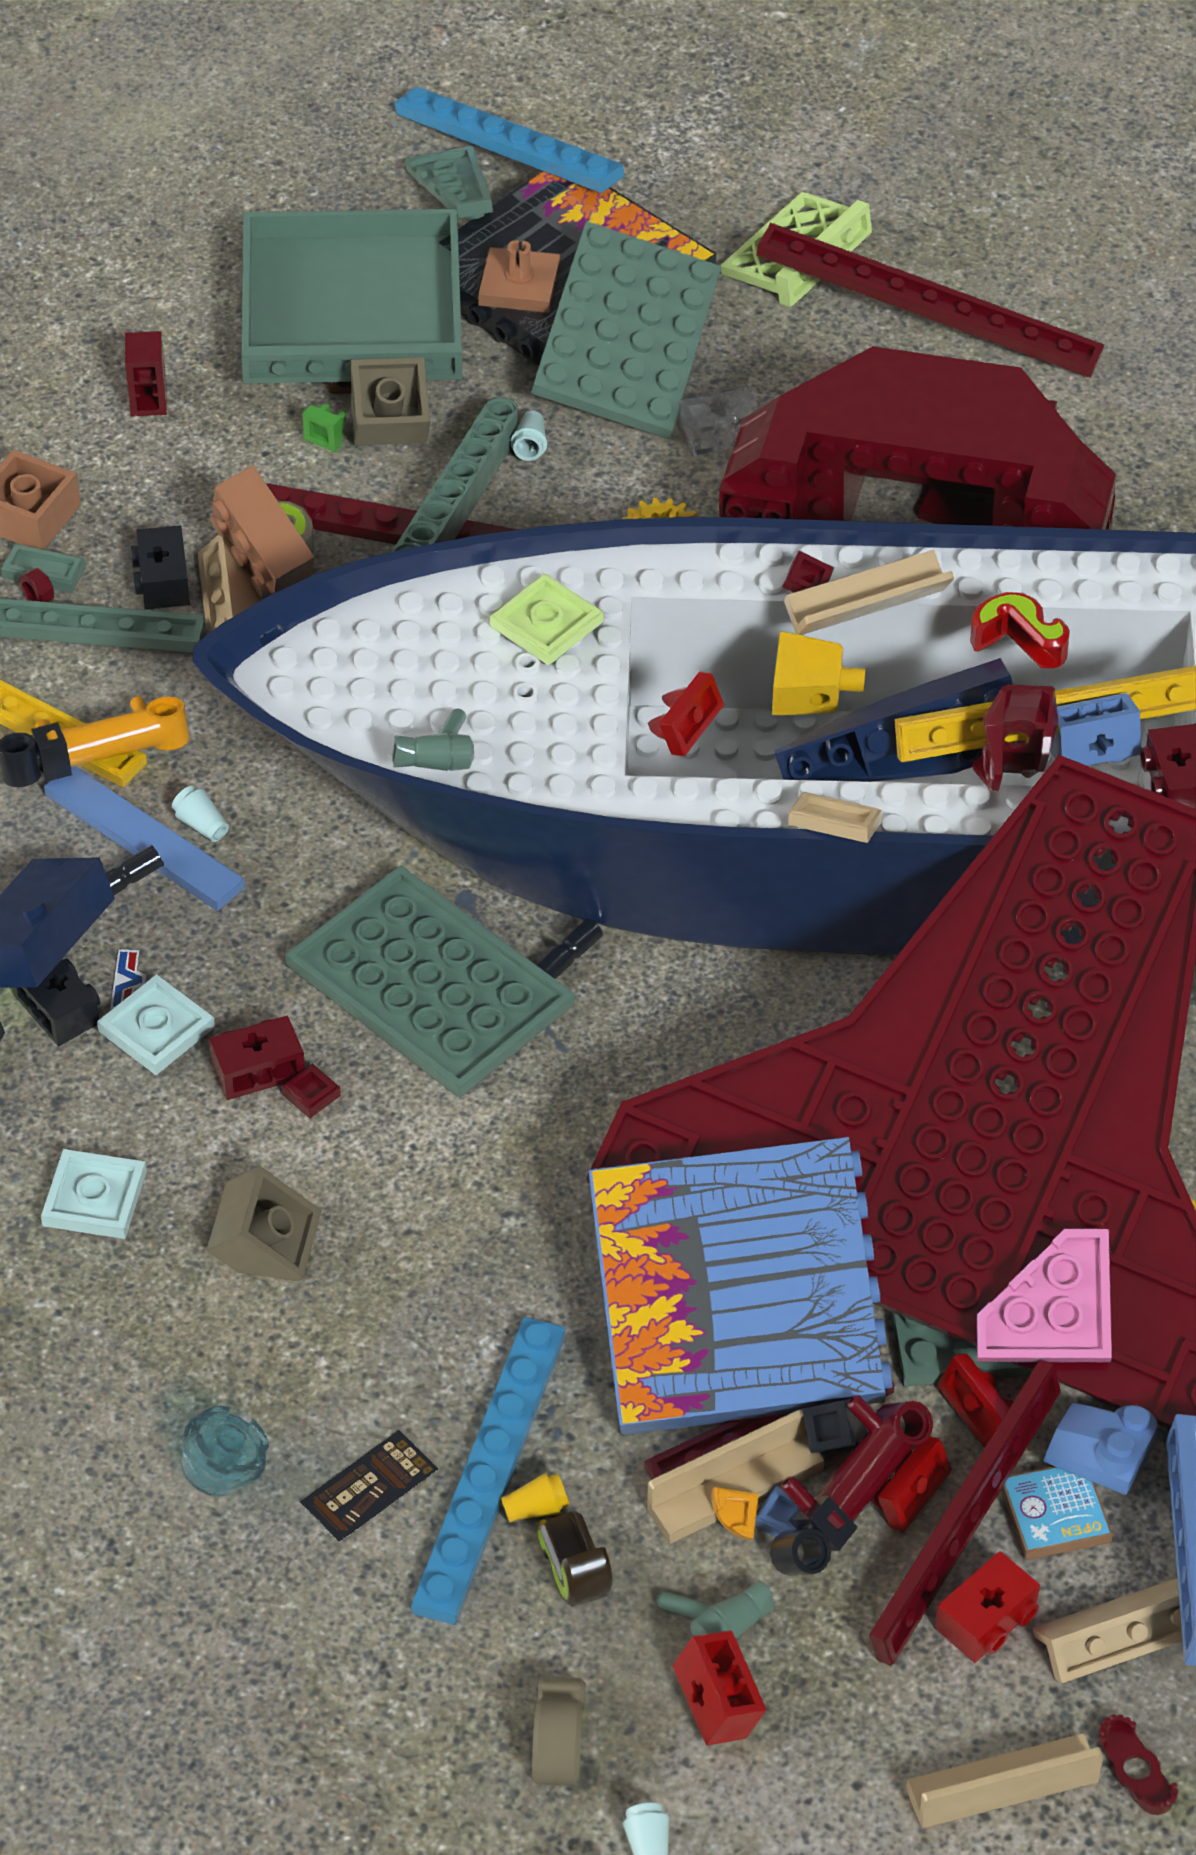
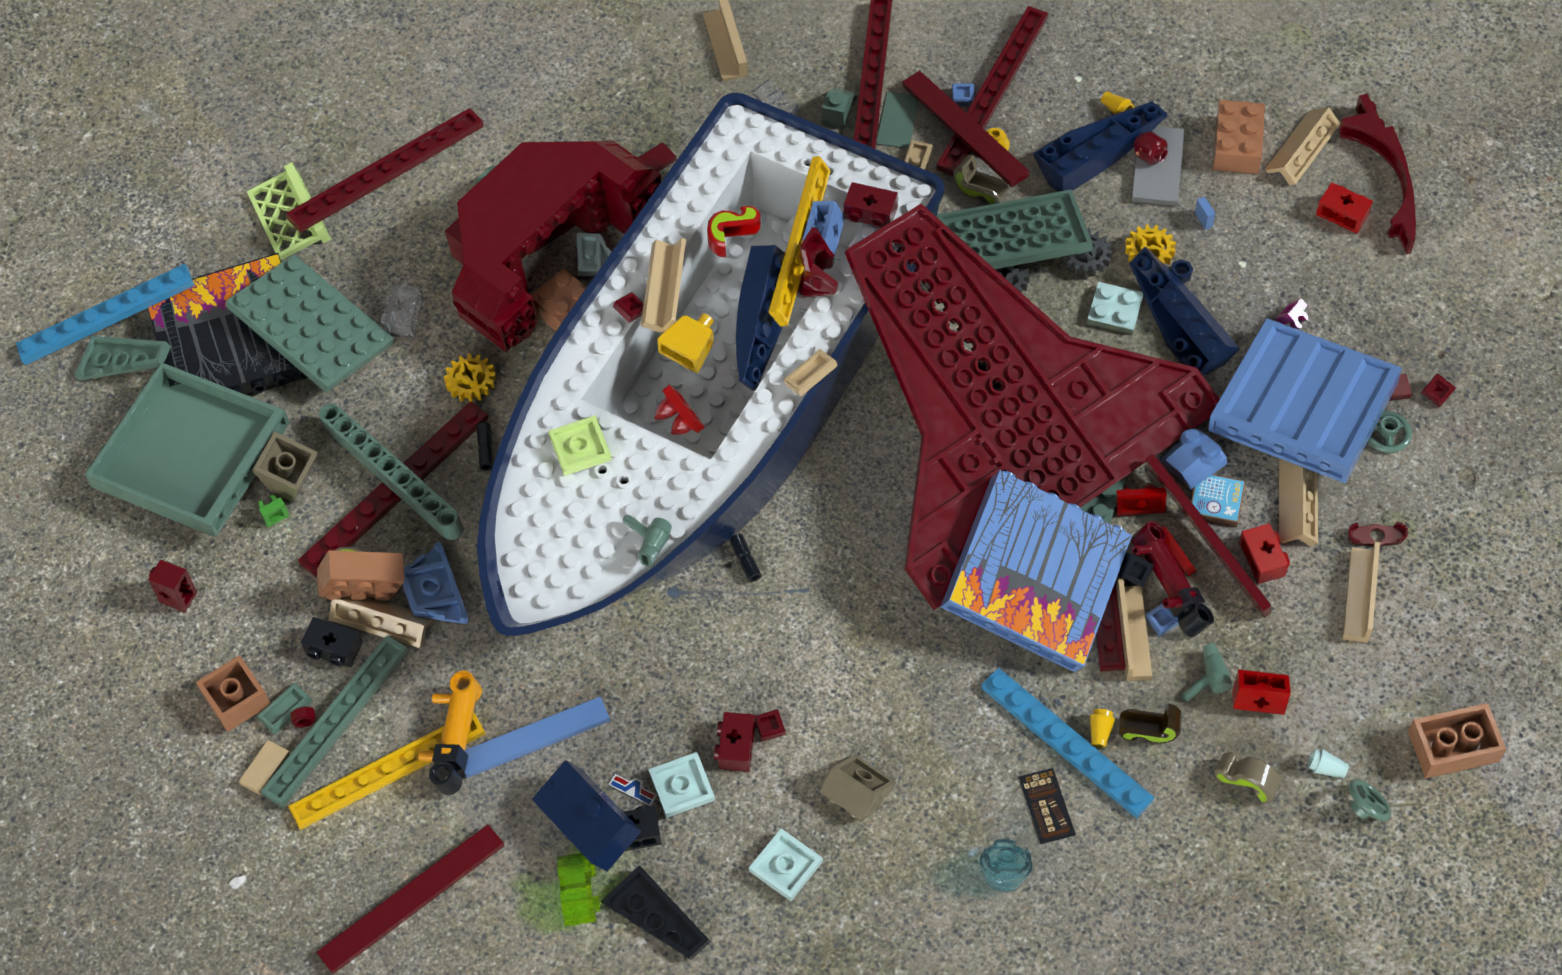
camera: 60 degrees left, 10 degrees up
(134, 869) = (561, 747): black piece -> none
(199, 812) = (537, 699): light aqua cone -> none
(430, 980) = (727, 633): sand green plate -> none
(519, 278) = (234, 358): nougat tile -> none
(529, 437) = (355, 409): light aqua cone -> none
(735, 1511) = (1154, 638): light orange tile -> none
(1053, 1306) = (1122, 434): bright pink plate -> none

